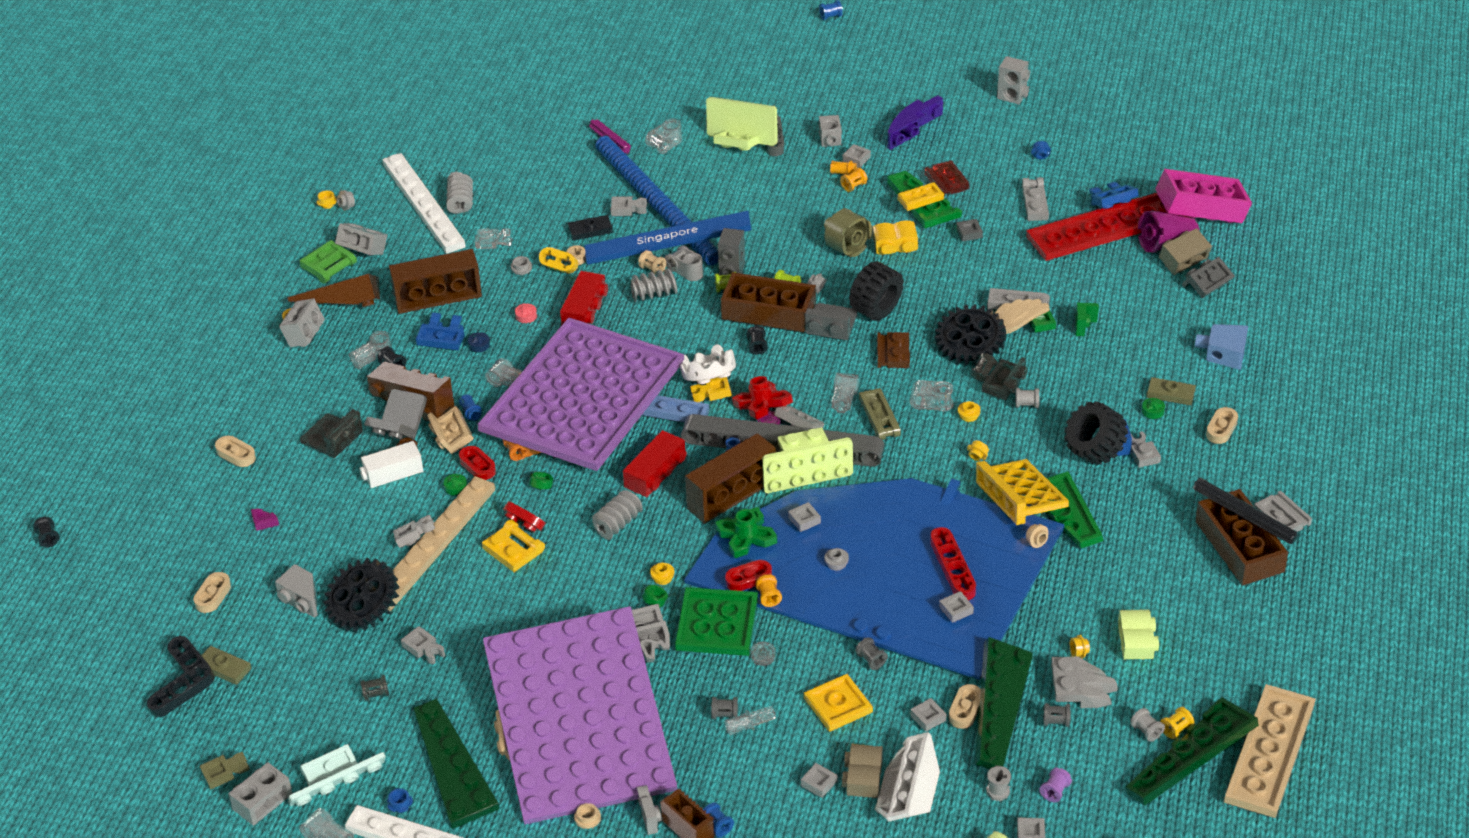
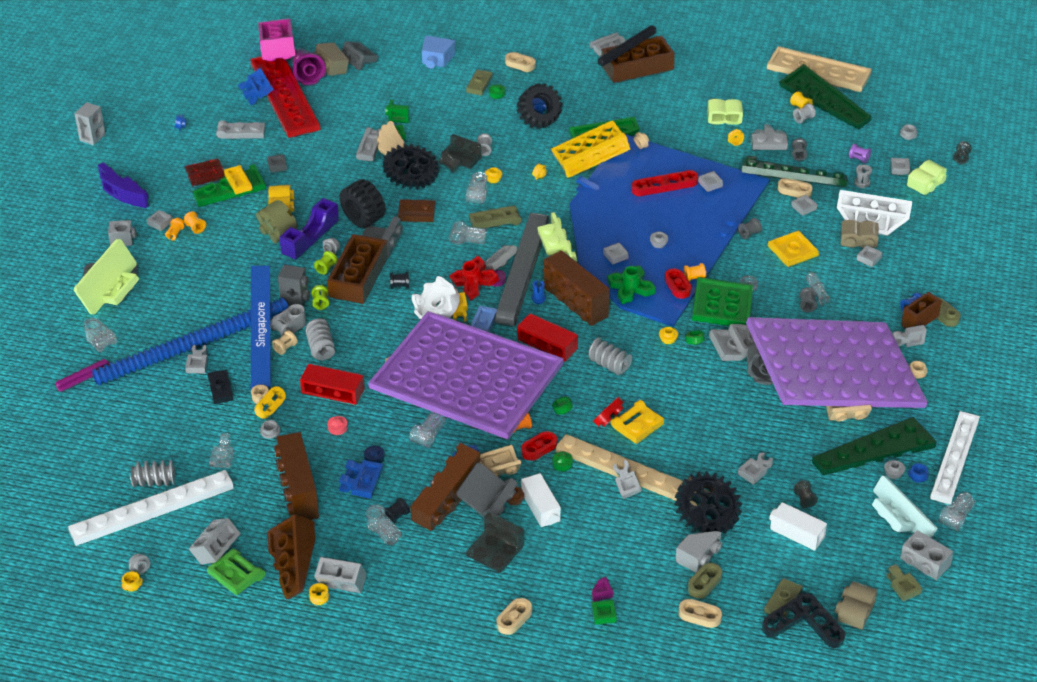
camera: 90 degrees left, 0 degrees up
(196, 724) = (856, 604): none -> dark tan brick
(228, 517) = (603, 612): none -> green plate
(257, 597) = (701, 584): none -> olive plate
(323, 677) = (798, 526): none -> white brick
(410, 778) = (894, 469): none -> light grey plate
(816, 253) = (322, 218): none -> dark purple arch

